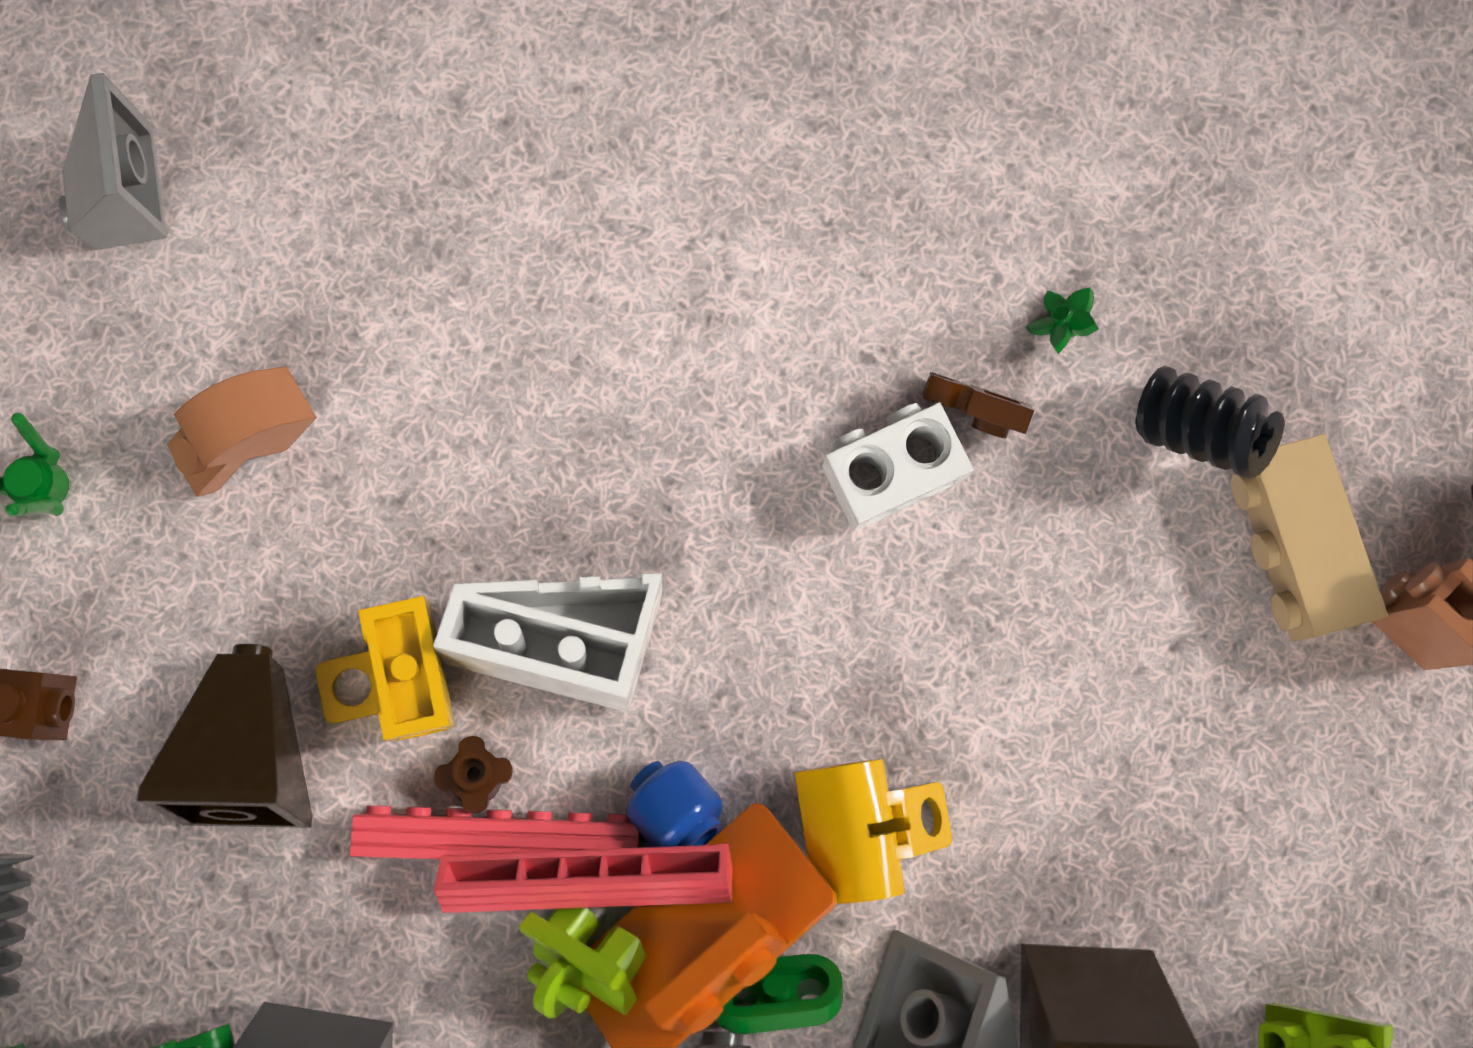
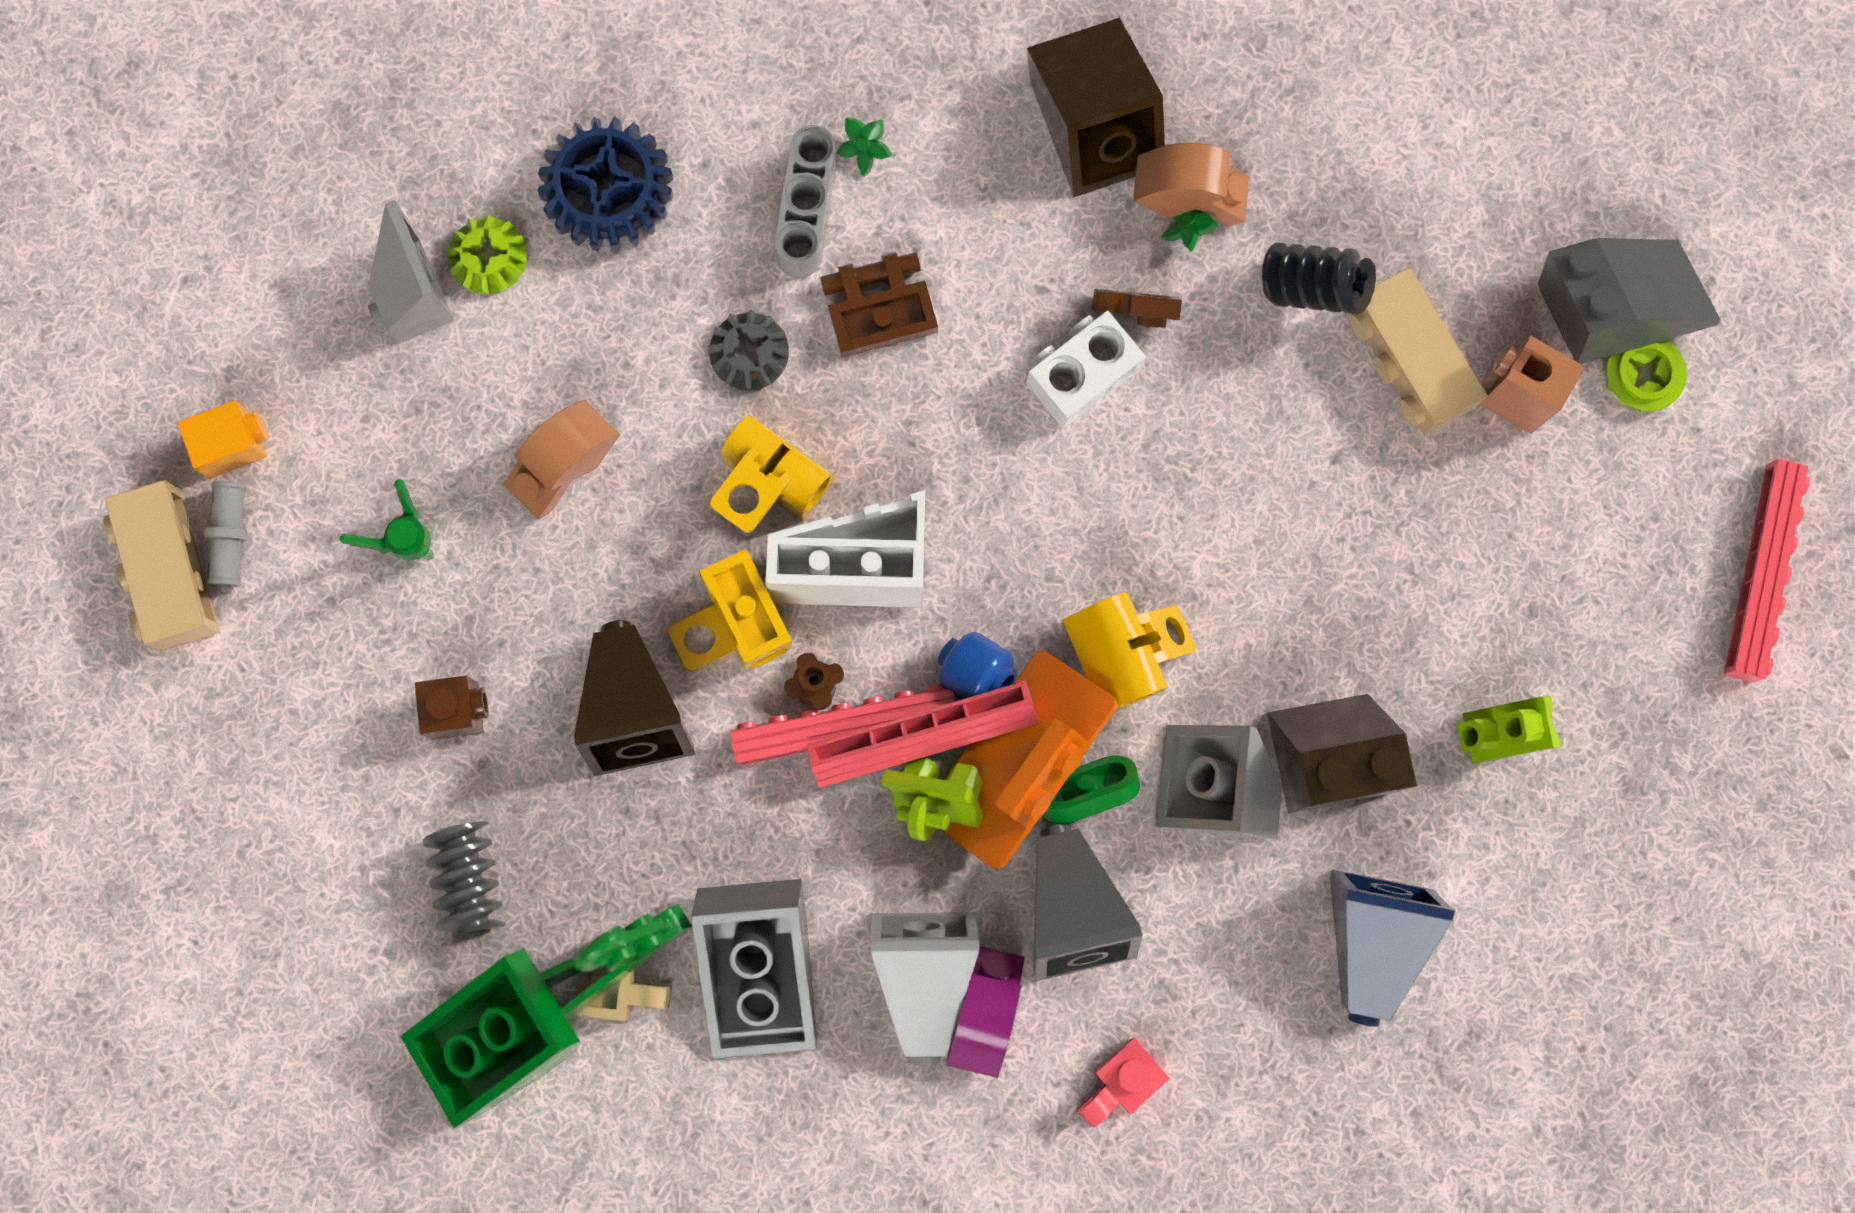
camera: 15 degrees left, 0 degrees up
(233, 191) = (502, 270): none -> lime gear
(367, 85) = (566, 173): none -> dark blue gear
(480, 501) = (773, 470): none -> yellow piece
(524, 364) = (739, 371): none -> dark grey gear
(606, 164) = (805, 179): none -> light grey beam
(667, 347) = (881, 317): none -> reddish brown plate
(697, 137) = (864, 143): none -> green plant
(988, 154) = (1097, 104): none -> dark brown slope
(1080, 264) = (1190, 178): none -> nougat brick

